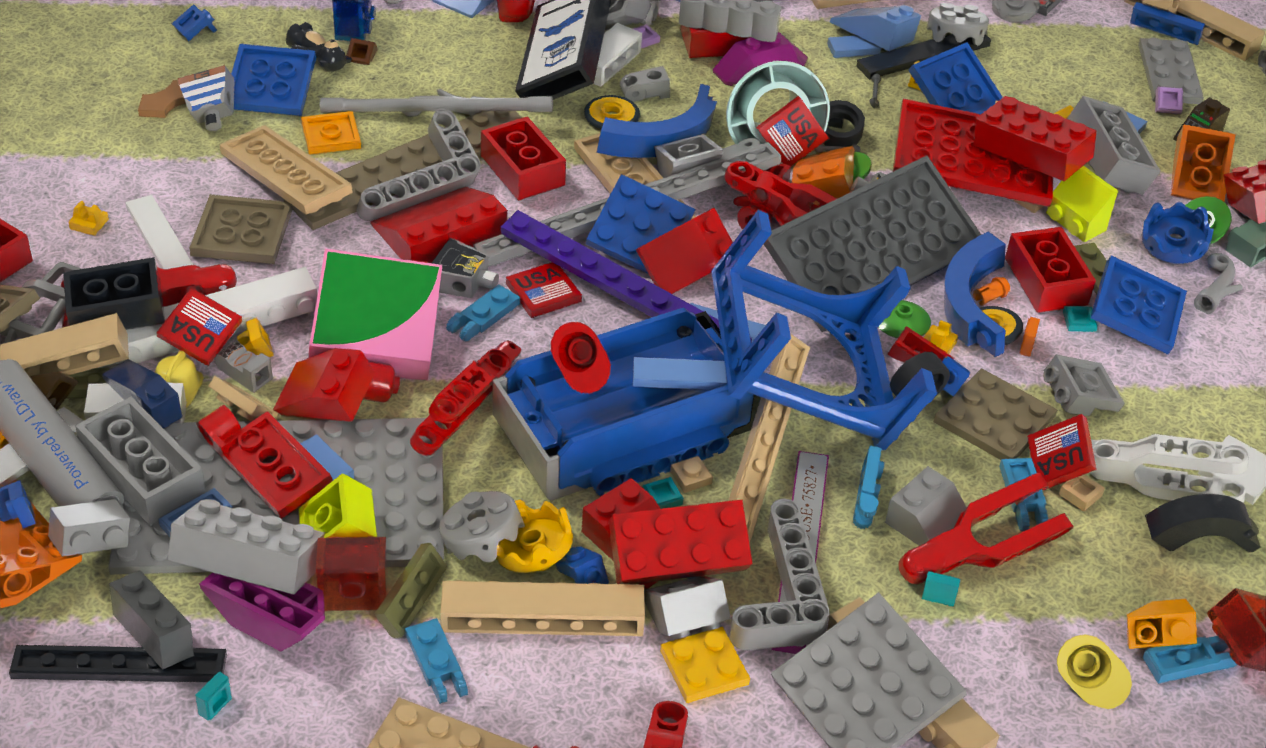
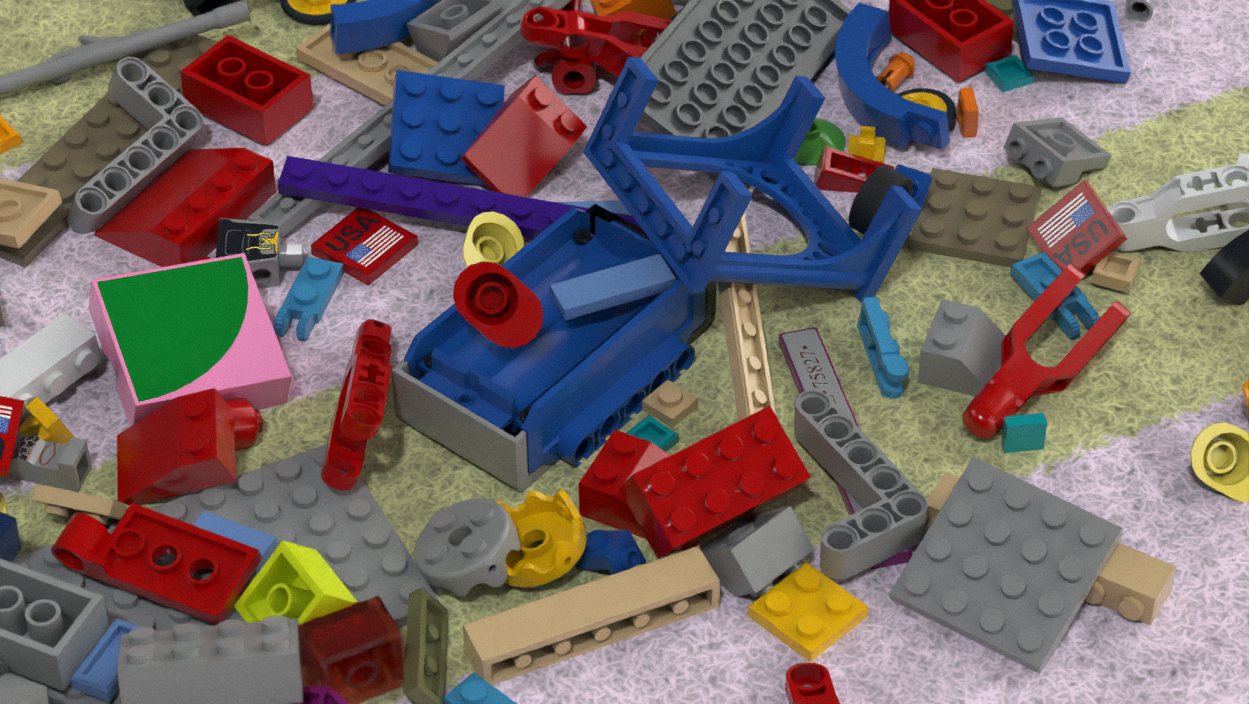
camera: 20 degrees left, 0 degrees up
(622, 311) = (491, 239): none -> light yellow piece

